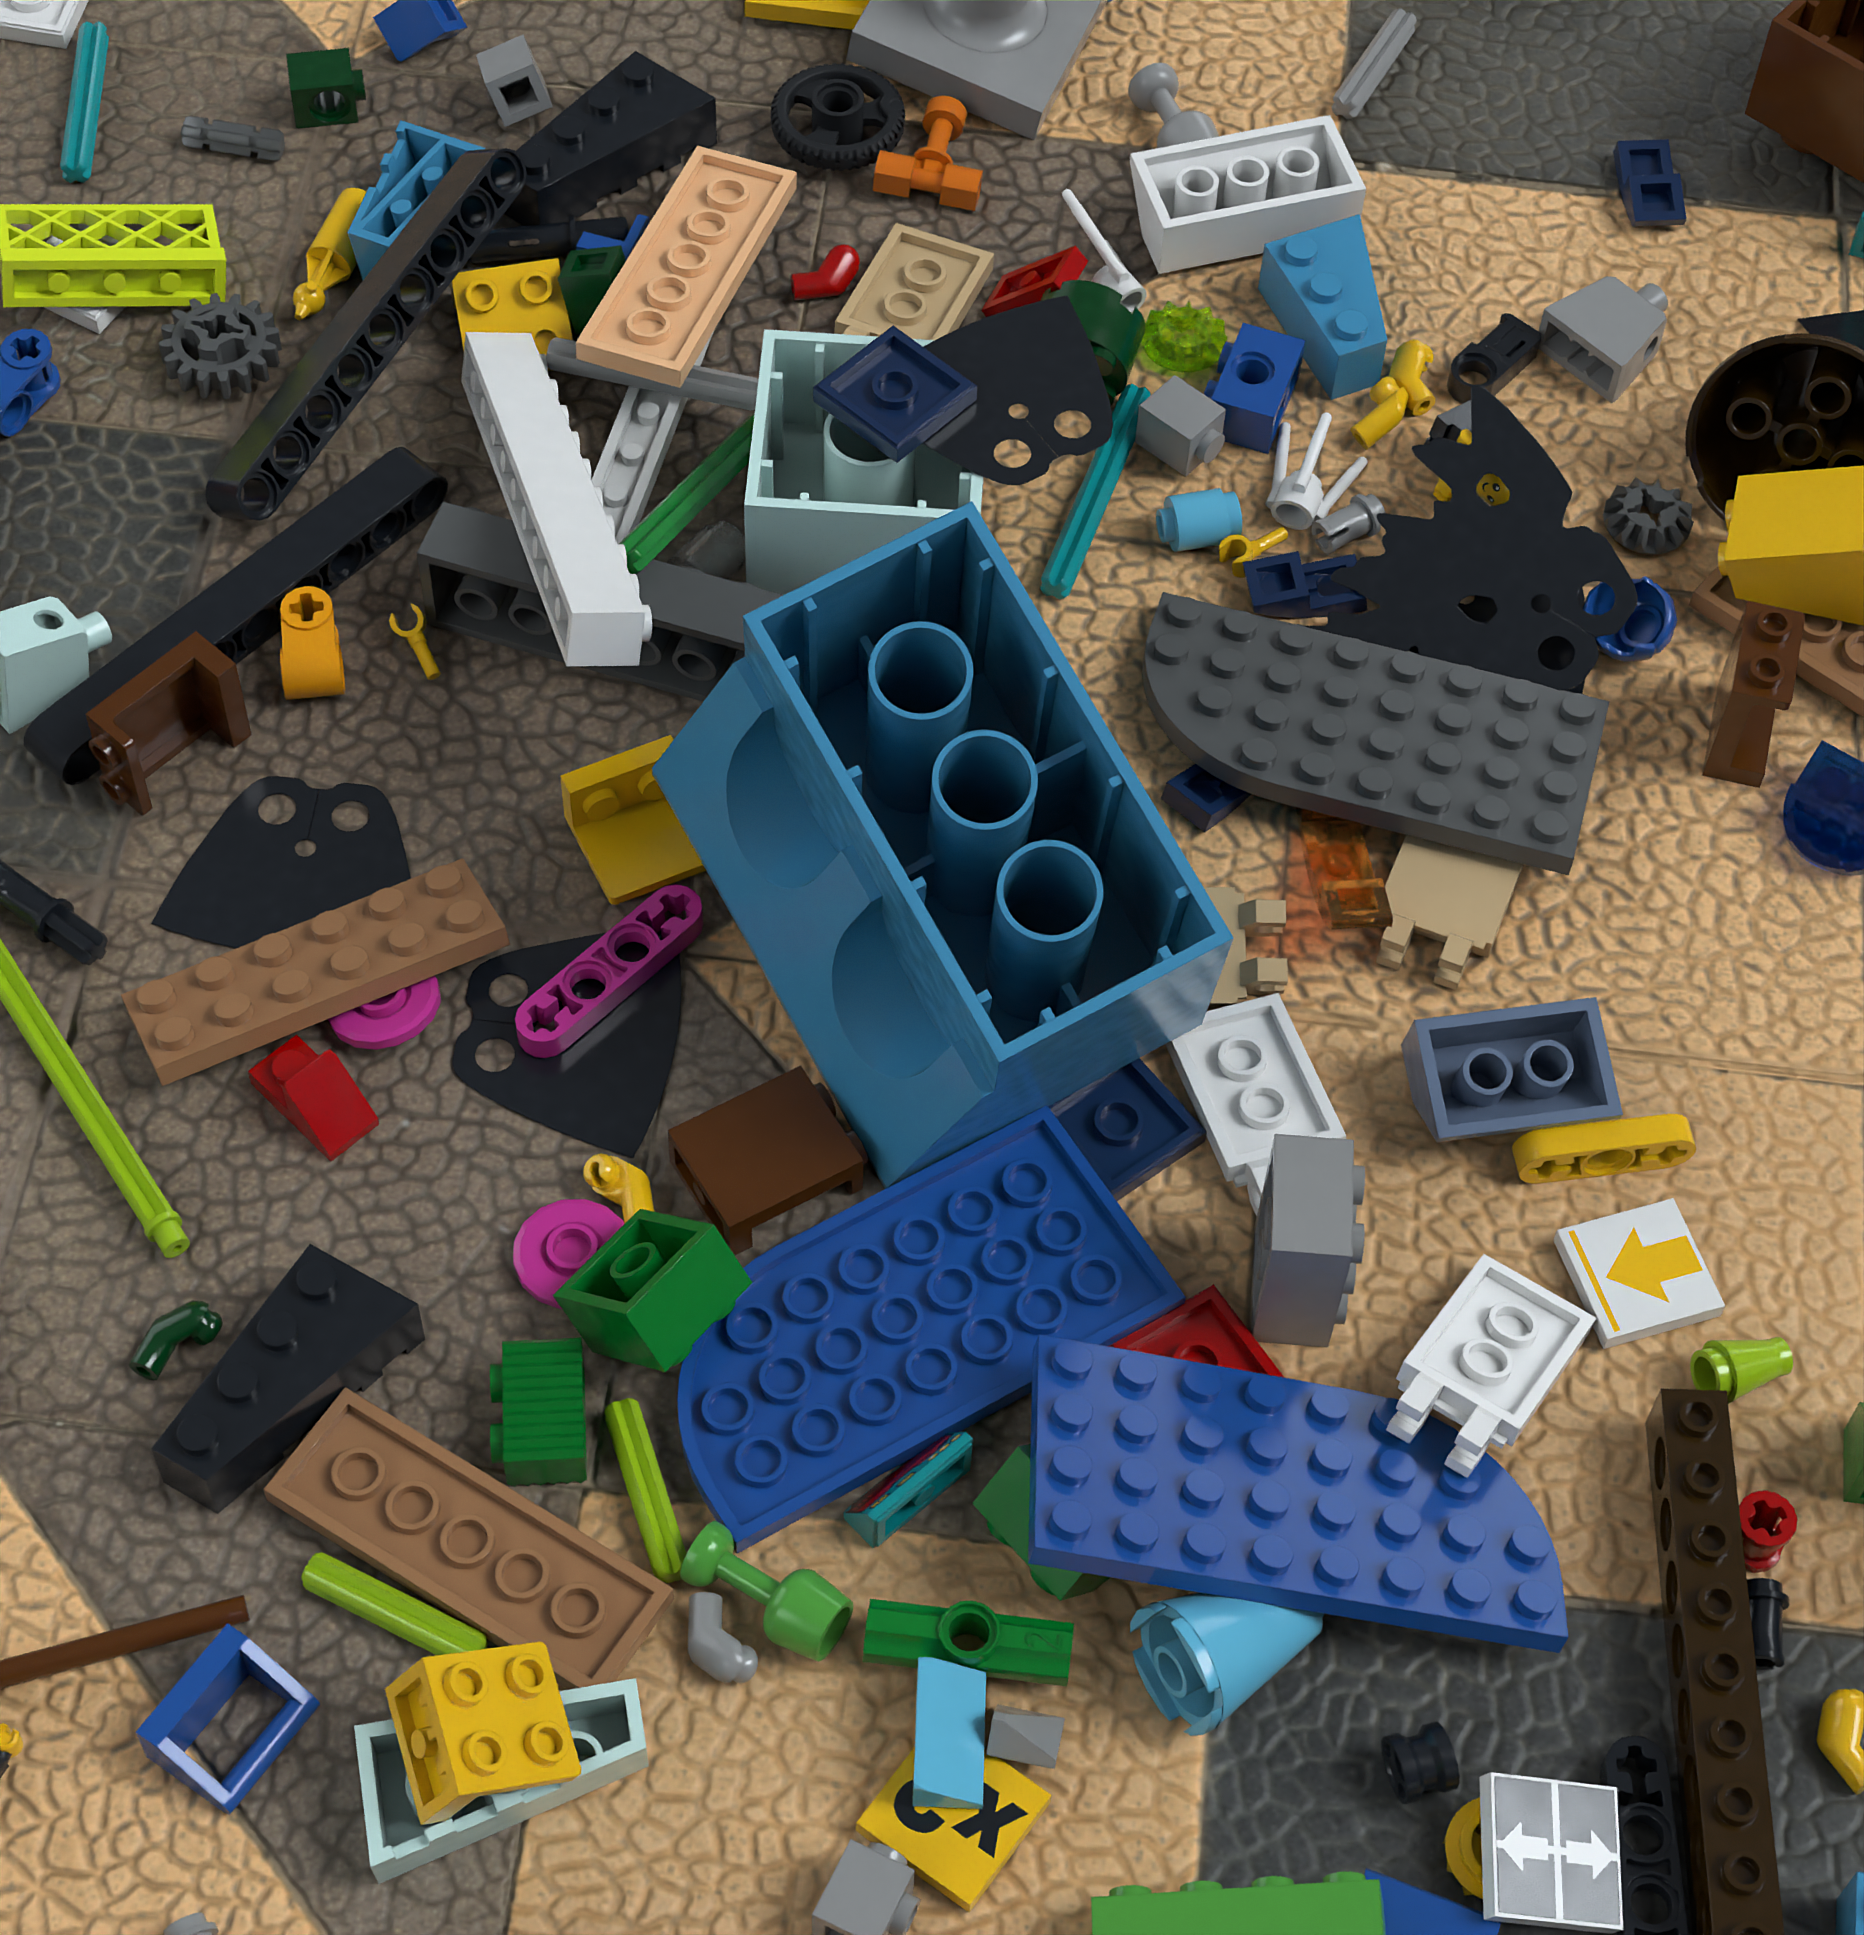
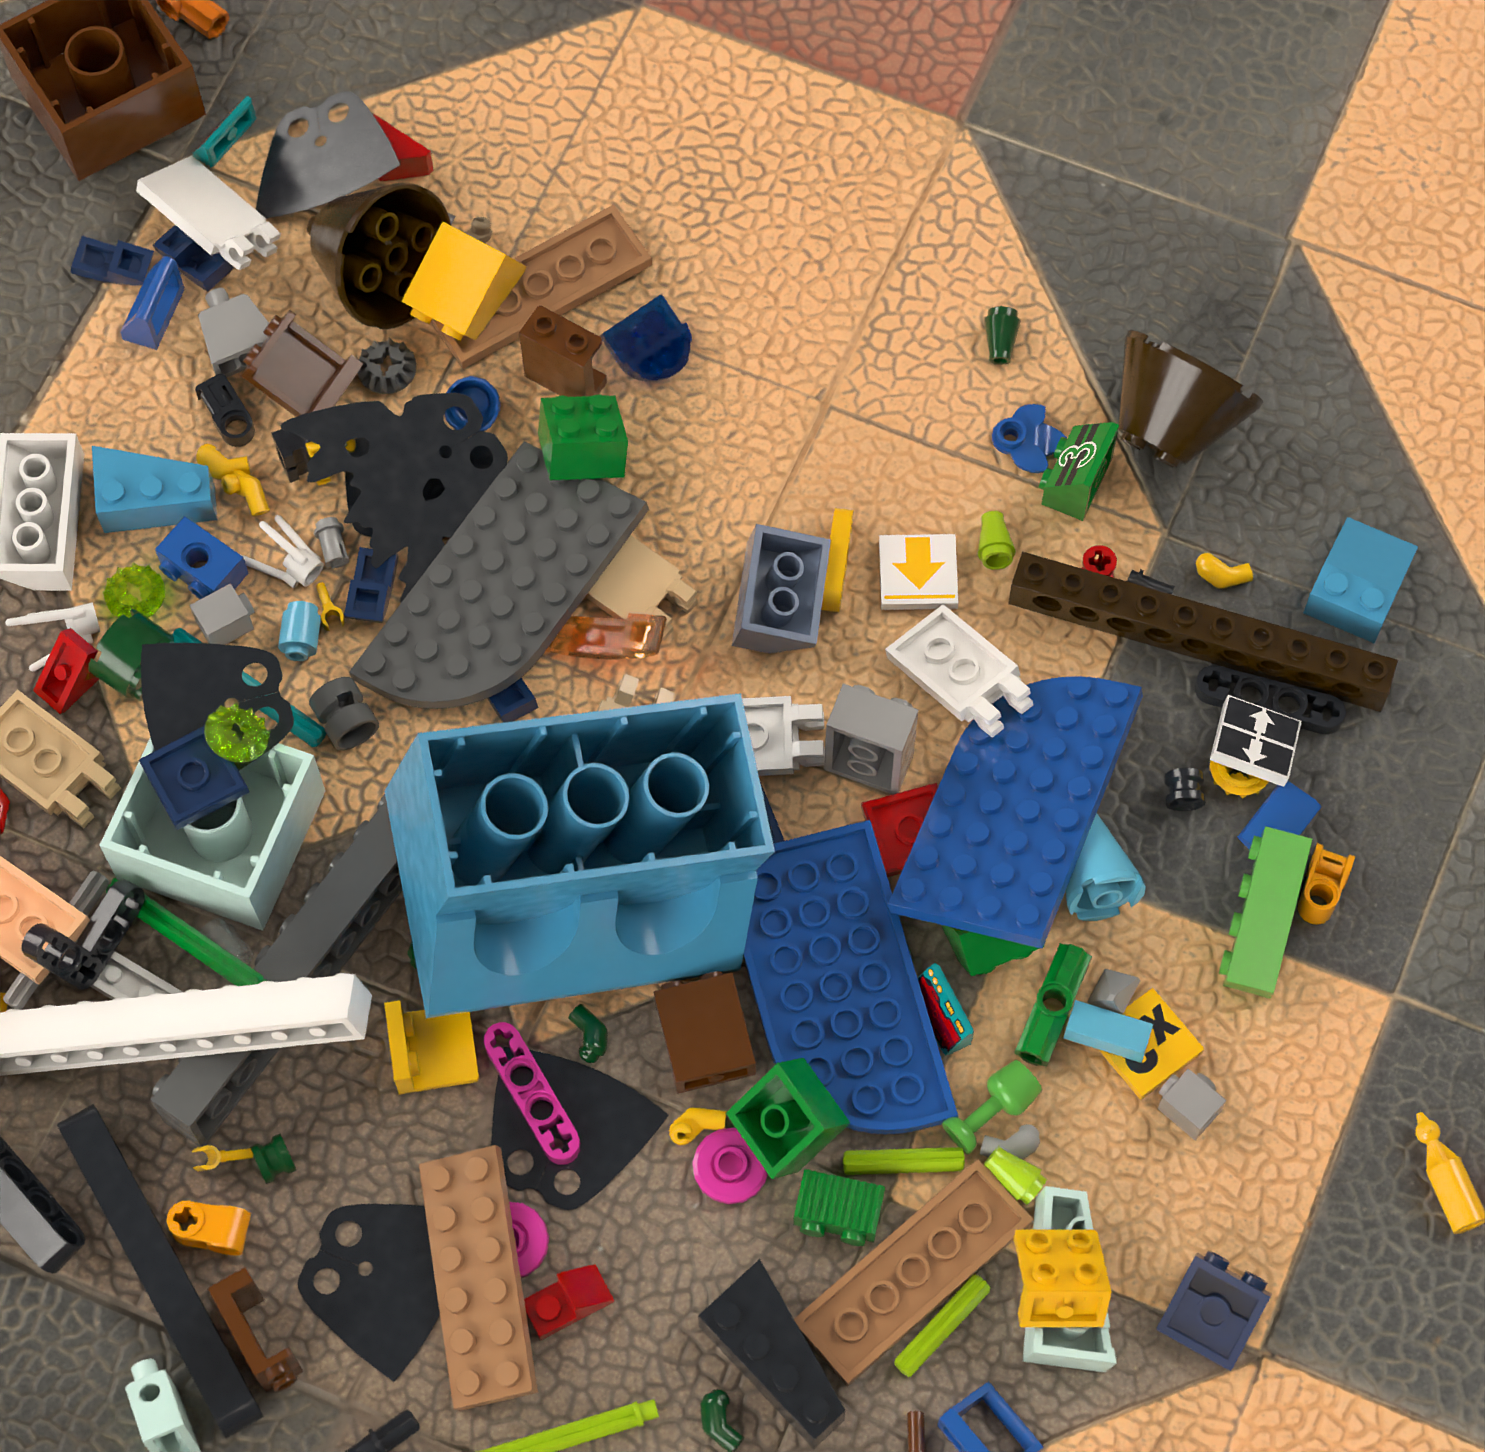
camera: 70 degrees left, 10 degrees up
(425, 692) = (273, 1158): none -> dark green wheel
(641, 394) = (91, 951): none -> black beam
(664, 1652) = (1015, 1175): none -> lime cone
(722, 1025) = (594, 1034): none -> dark green arm
(960, 434) = (224, 740): none -> clear neon green gear
(1095, 596) = (345, 716): none -> dark grey wheel
(1587, 401) = (298, 368): none -> panel
(1606, 237) = (154, 304): none -> blue tile
(1638, 752) = (582, 437): none -> green brick
(1702, 265) = (193, 259): none -> dark blue slope
(1775, 252) = (209, 211): none -> white tile

